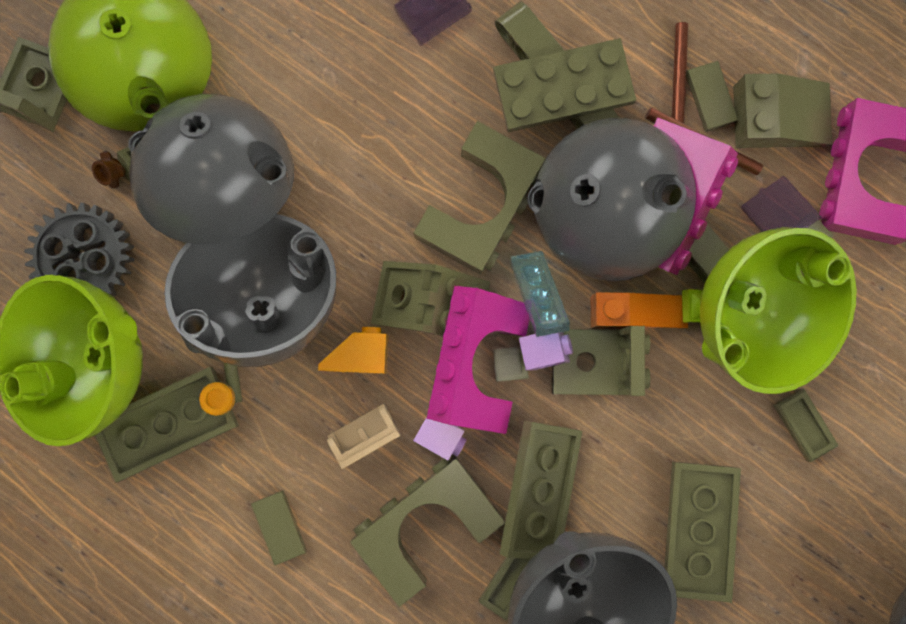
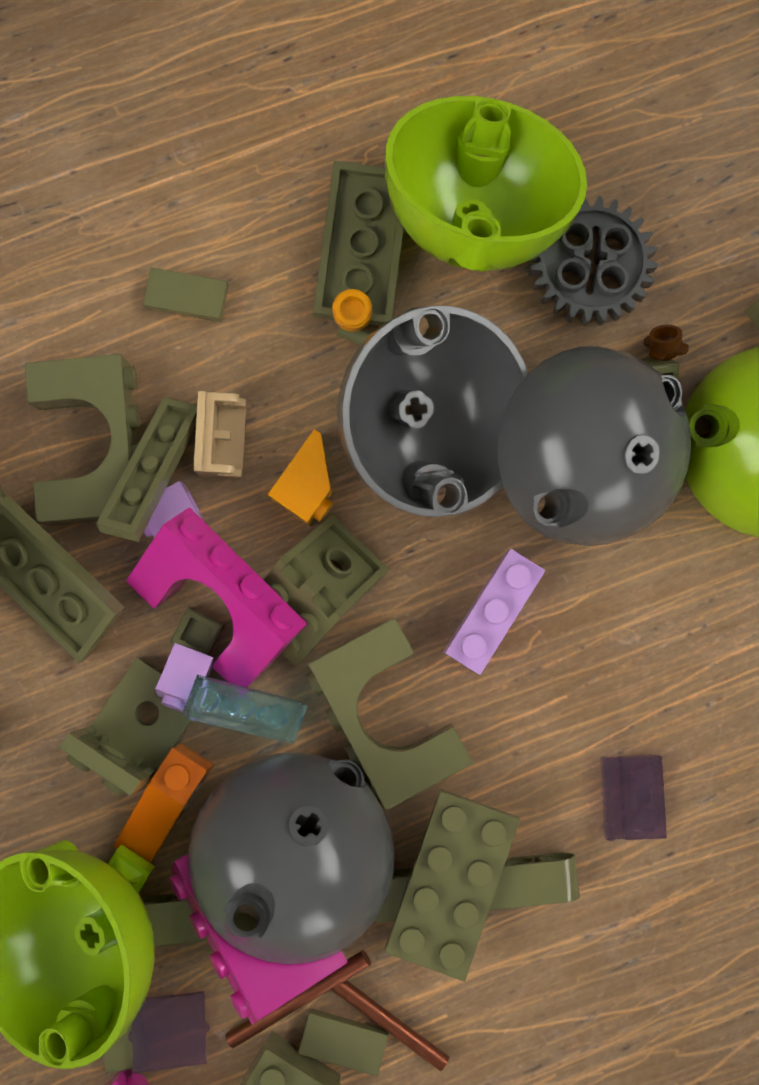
camera: 125 degrees right, 0 degrees up
(367, 171) = (494, 611): none -> lavender brick
(418, 465) = (149, 470): none -> olive plate

